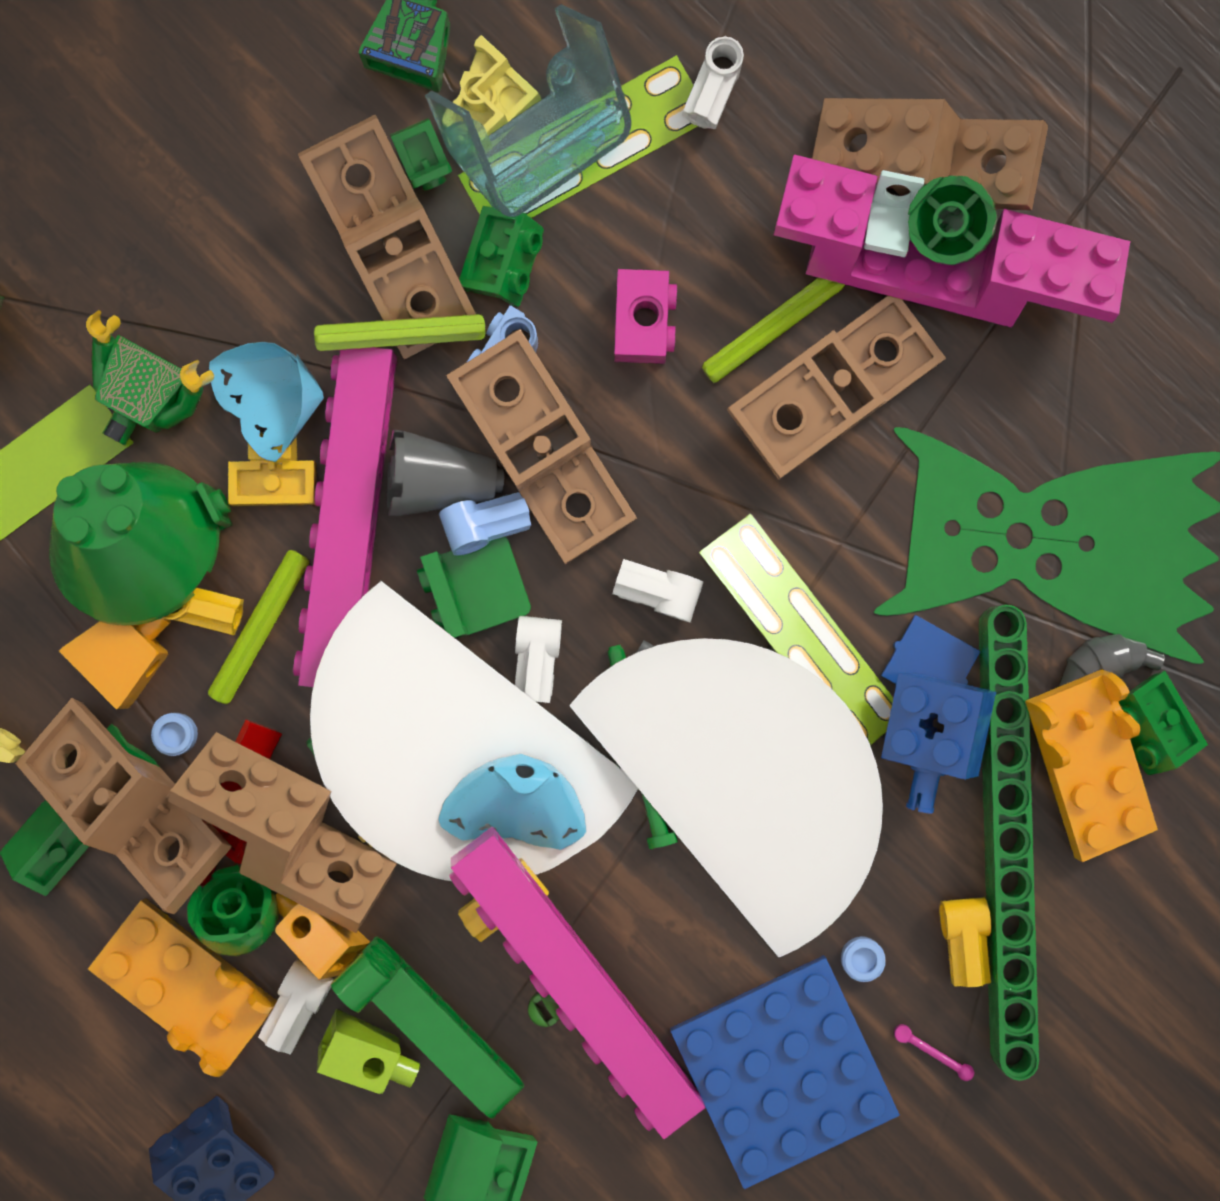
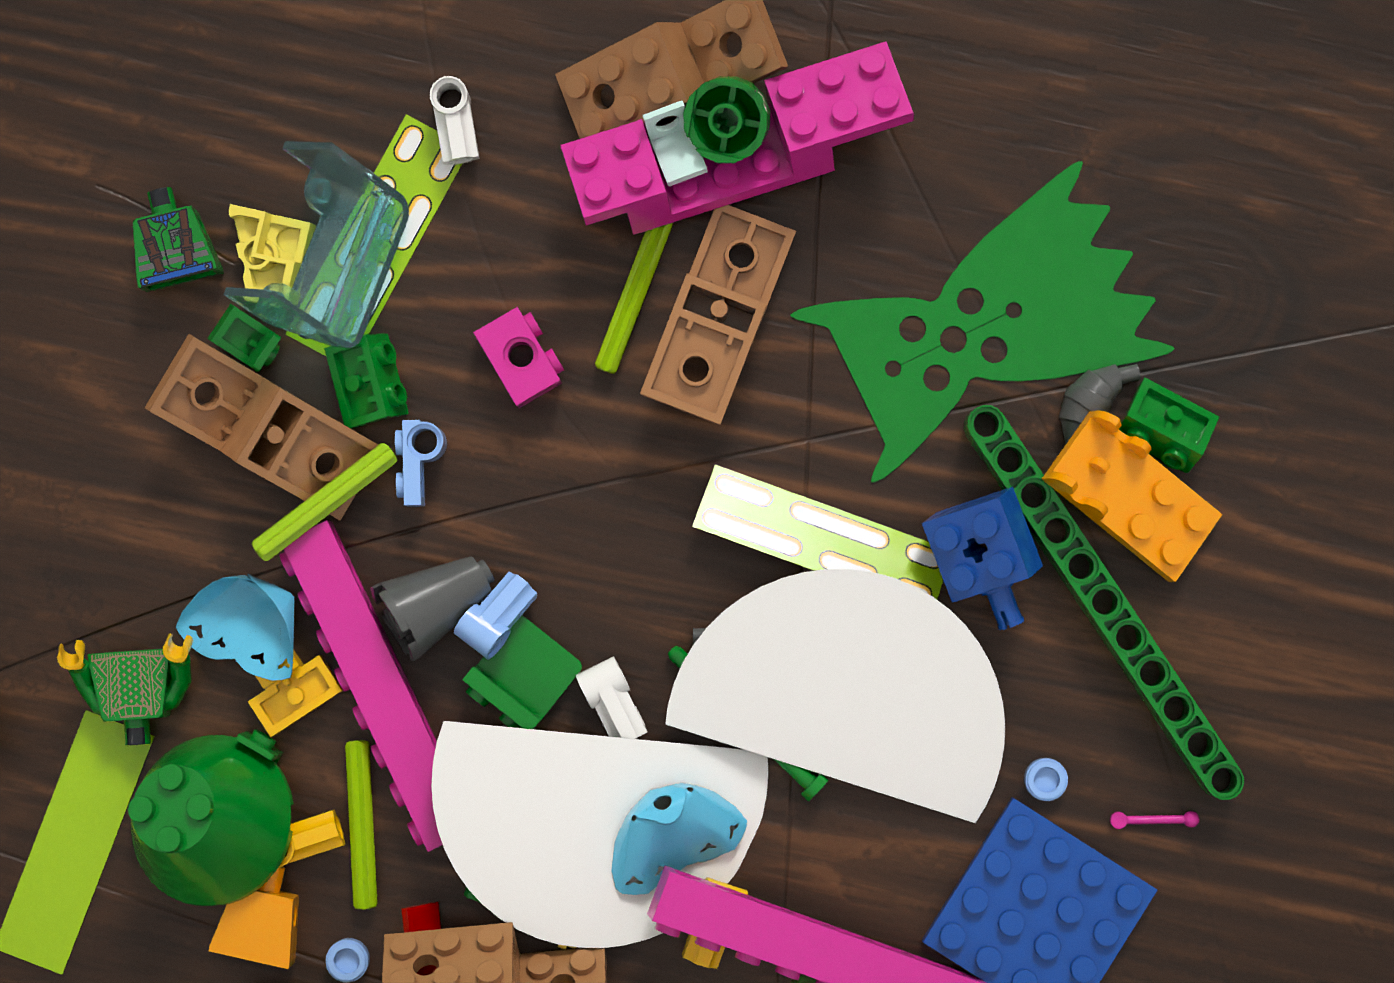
camera: 30 degrees left, 0 degrees up
(542, 446) = (505, 522): medium nougat bracket -> none
(667, 592) = (687, 576): white piece -> none
(931, 653) = (941, 486): blue piece -> none
(966, 928) = (1115, 699): yellow piece -> none

